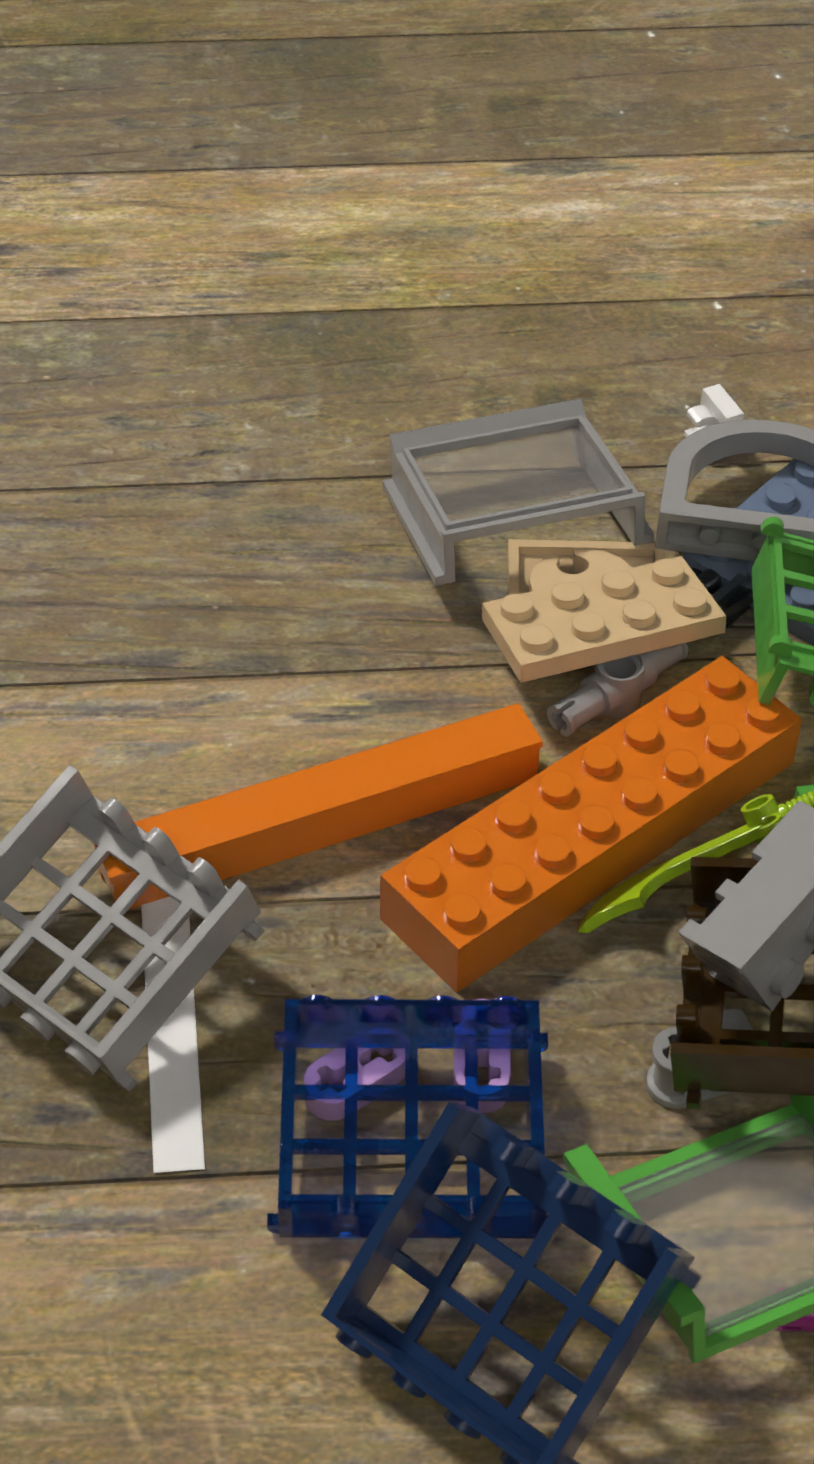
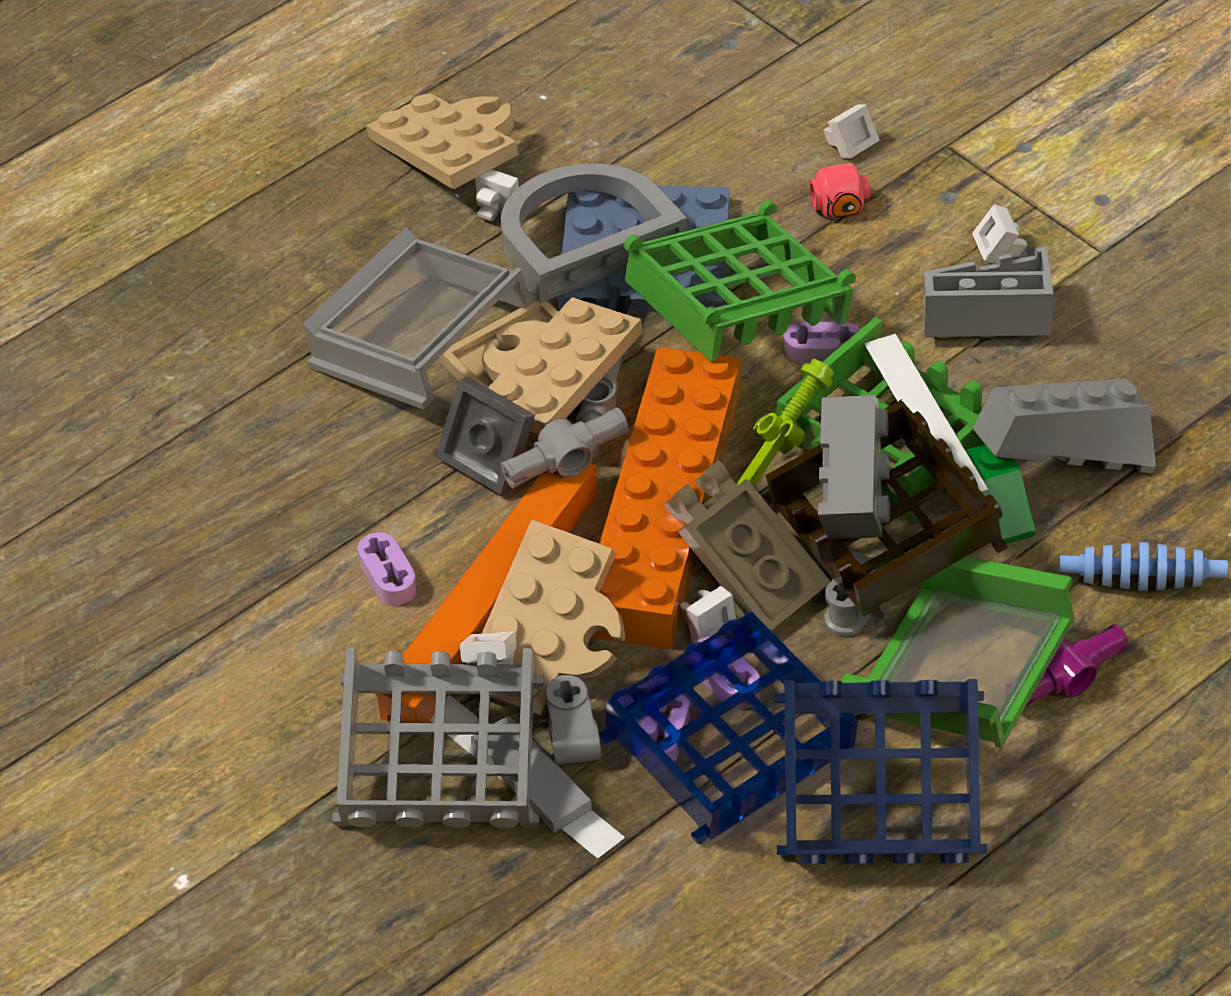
camera: 35 degrees left, 0 degrees up
(173, 1058) = (551, 790): none -> light grey tile
(234, 860) = (500, 643): none -> white tile
(240, 721) = (394, 565): none -> lavender beam
(254, 1001) = (570, 722): none -> light grey piece
(335, 868) = (556, 608): none -> tan plate
(461, 644) = (483, 433): none -> flat silver plate
(516, 700) = (564, 447): none -> light grey pin
(519, 975) = (708, 613): none -> white tile
(615, 931) = (746, 546): none -> dark tan tile
(720, 343) = (446, 138): none -> tan plate

